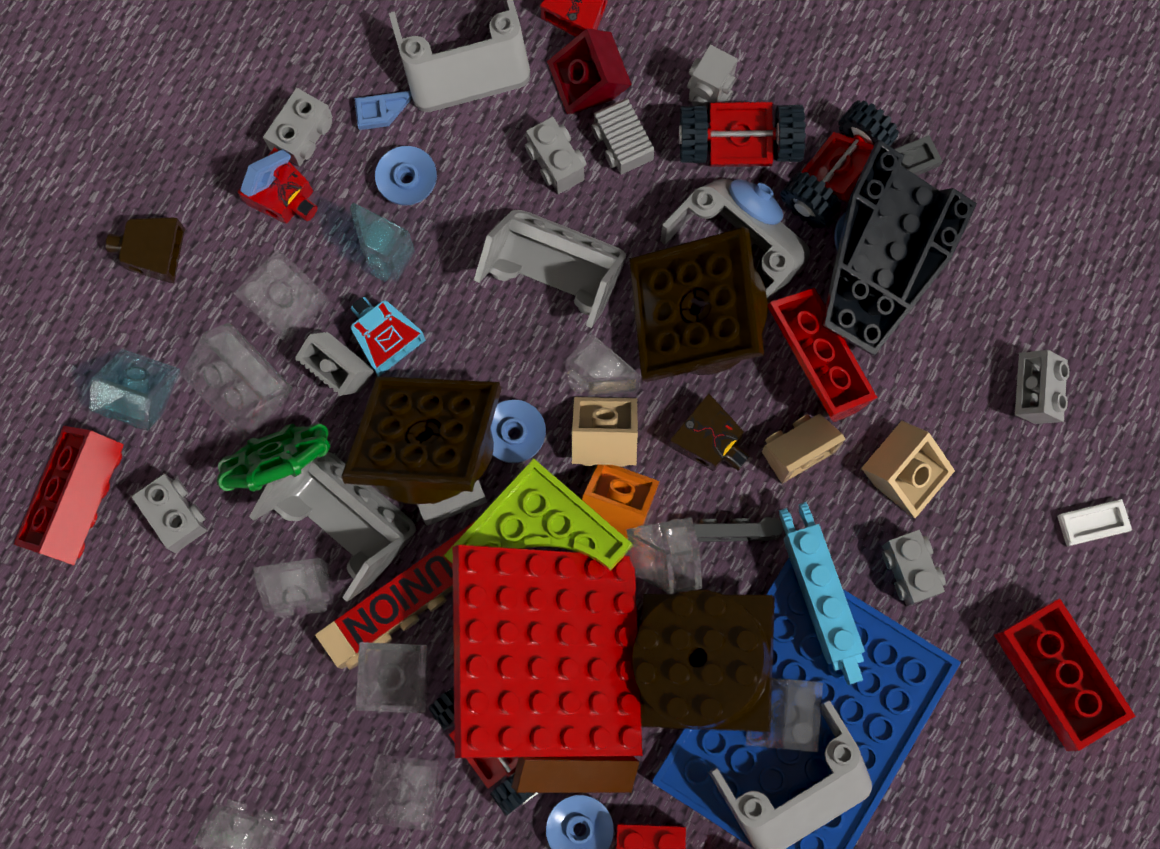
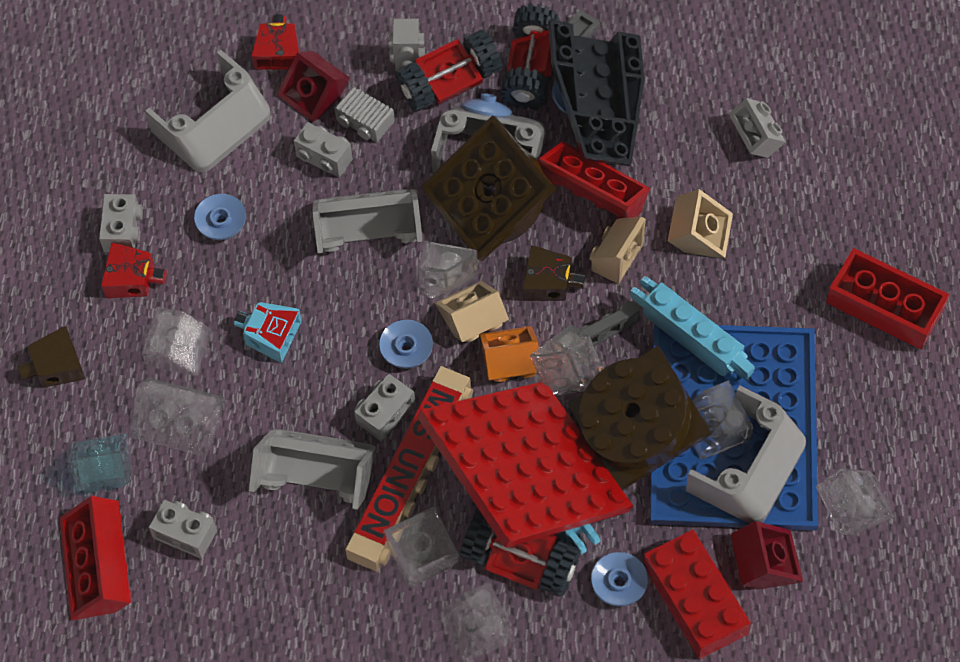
camera: 30 degrees left, 15 degrees down
(260, 173) = (116, 260): medium blue tile -> none
(273, 457) = (241, 442): green plate -> none
(295, 587) = (310, 525): clear slope -> none
(334, 363) = (246, 364): light grey brick -> none
(380, 109) = (171, 185): medium blue tile -> none
(383, 243) = (230, 265): clear light blue slope -> none
(424, 438) = (347, 372): dark brown piece -> none
(545, 513) = (468, 374): lime plate -> none
(575, 774) = (594, 534): reddish brown tile -> none
(913, 568) = (744, 286): light grey brick -> none
(1094, 522) = (847, 197): white tile -> none

